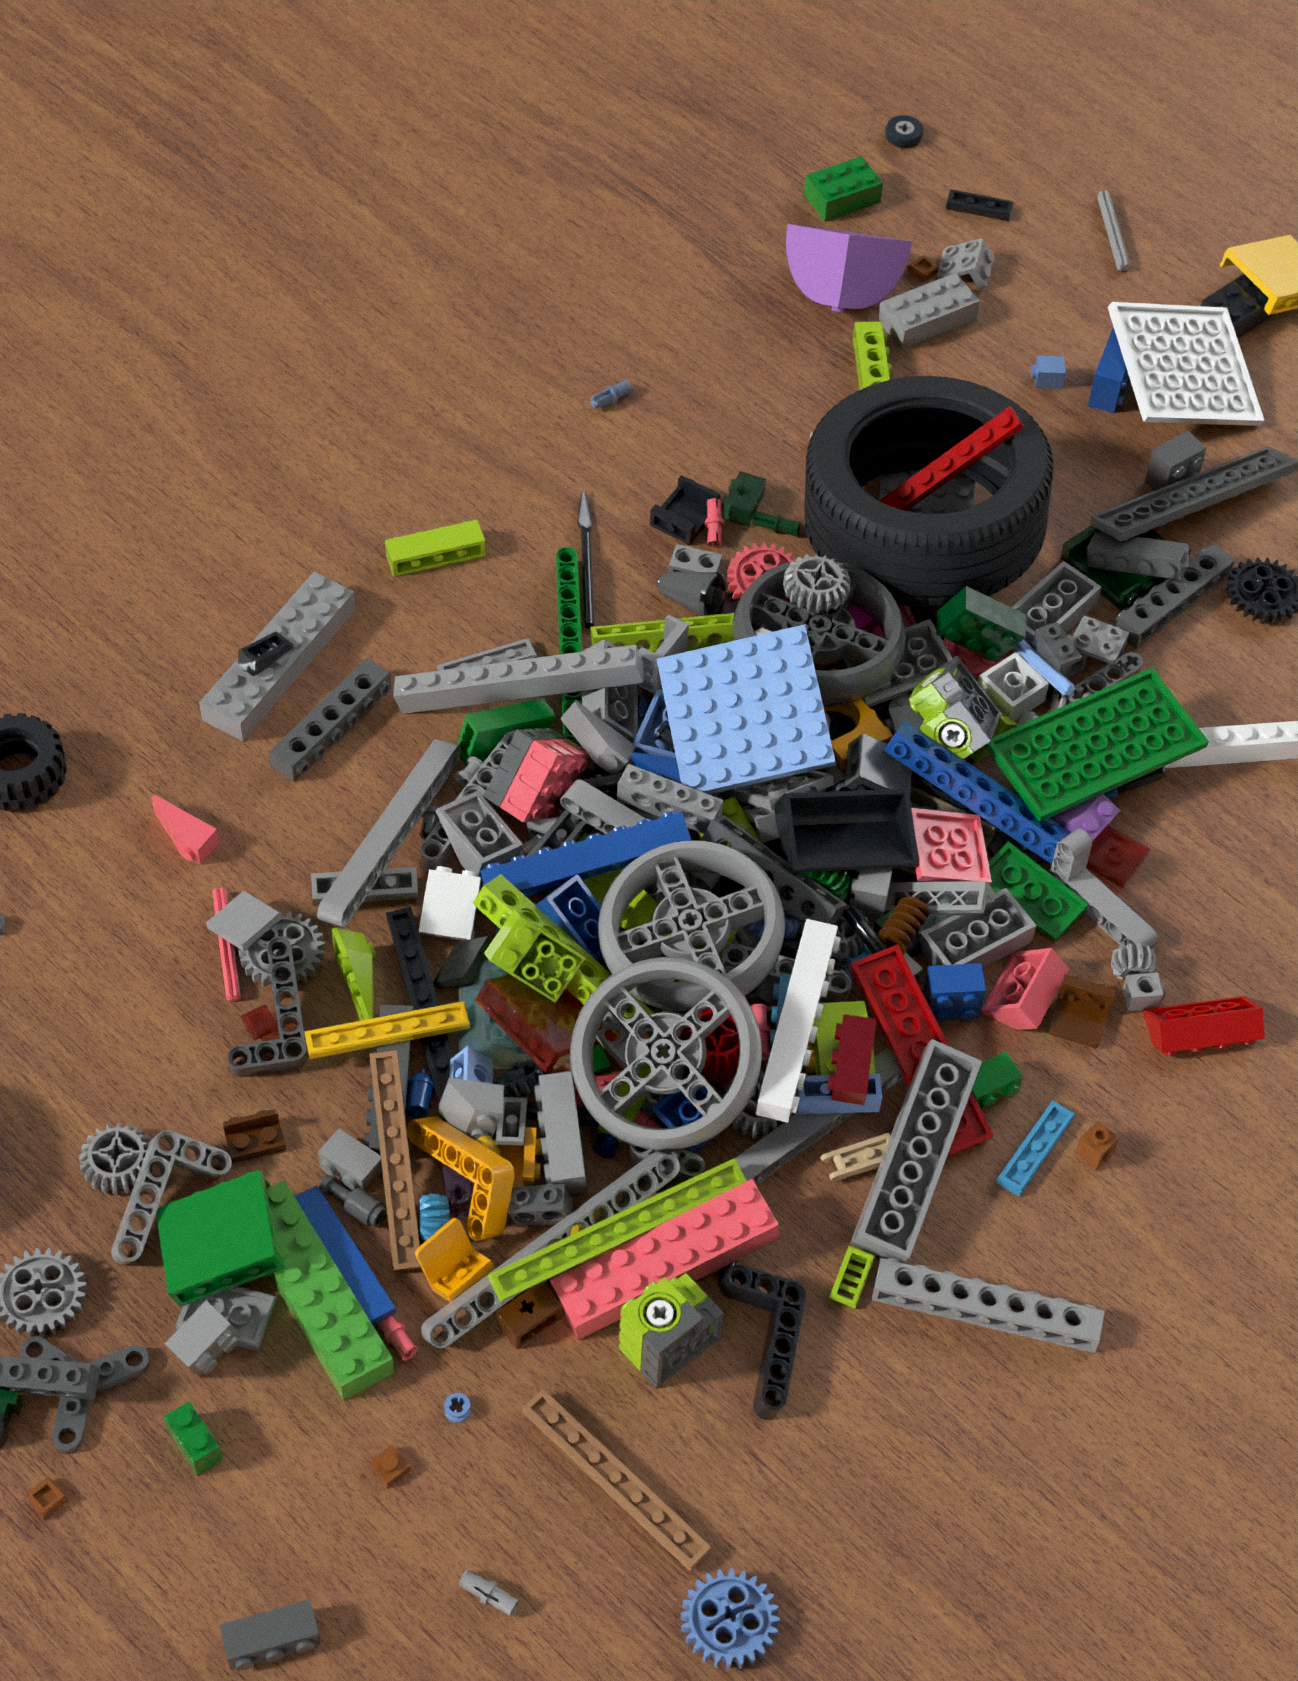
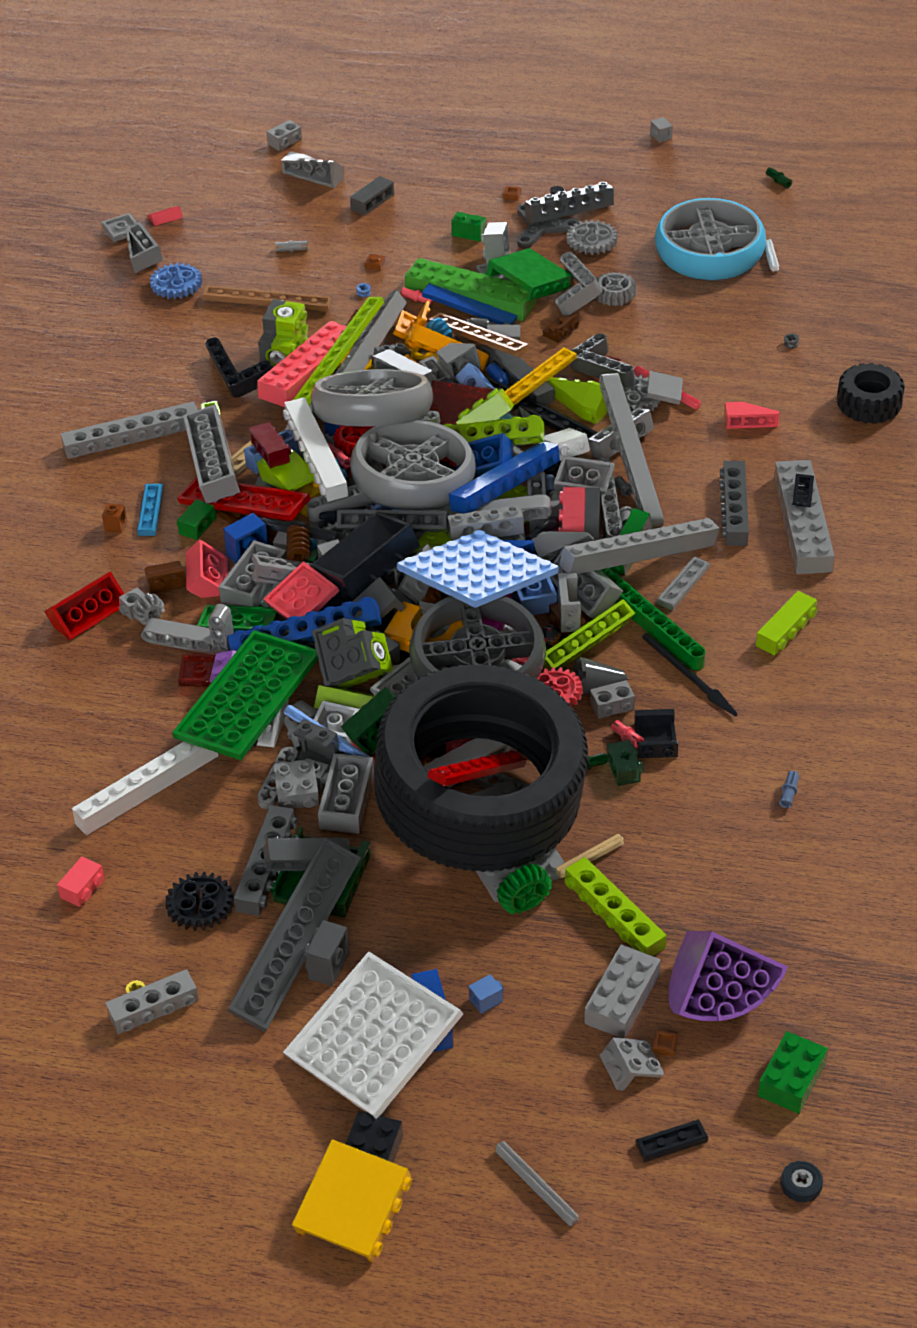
camera: 150 degrees right, 10 degrees down
(816, 583) = (495, 646): light grey gear -> none

